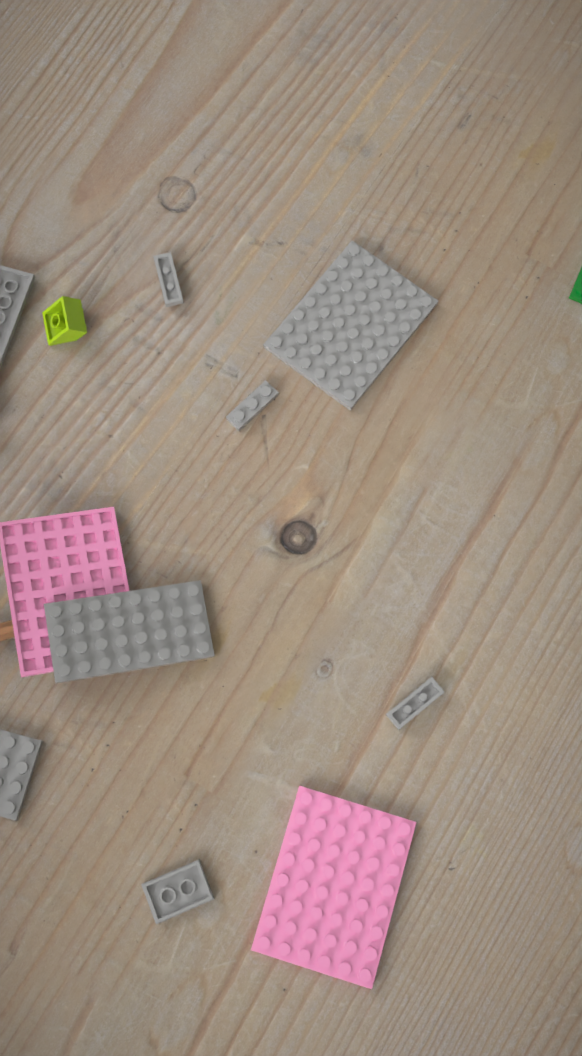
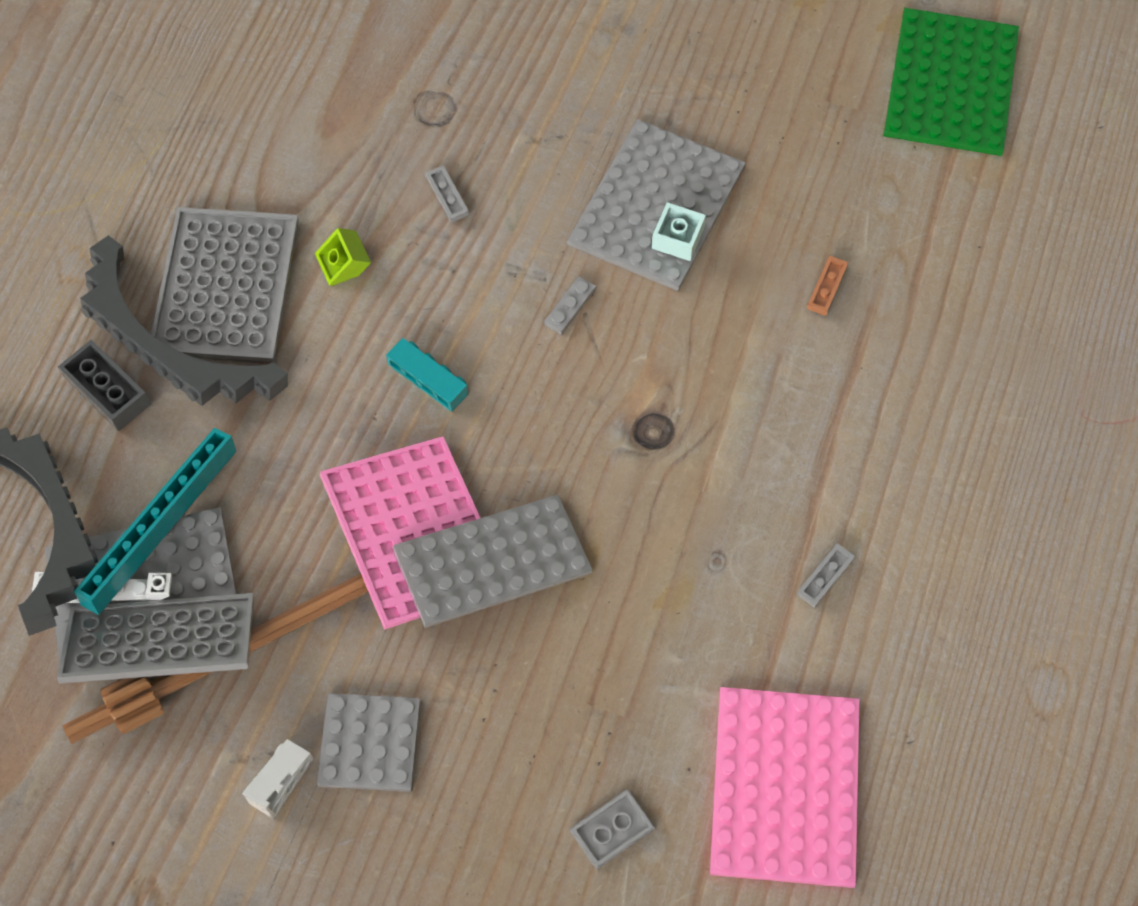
camera: 10 degrees left, 10 degrees down
(113, 446) = (427, 374): none -> teal brick
(361, 358) = (678, 231): none -> light aqua brick
(483, 432) = (827, 285): none -> nougat plate

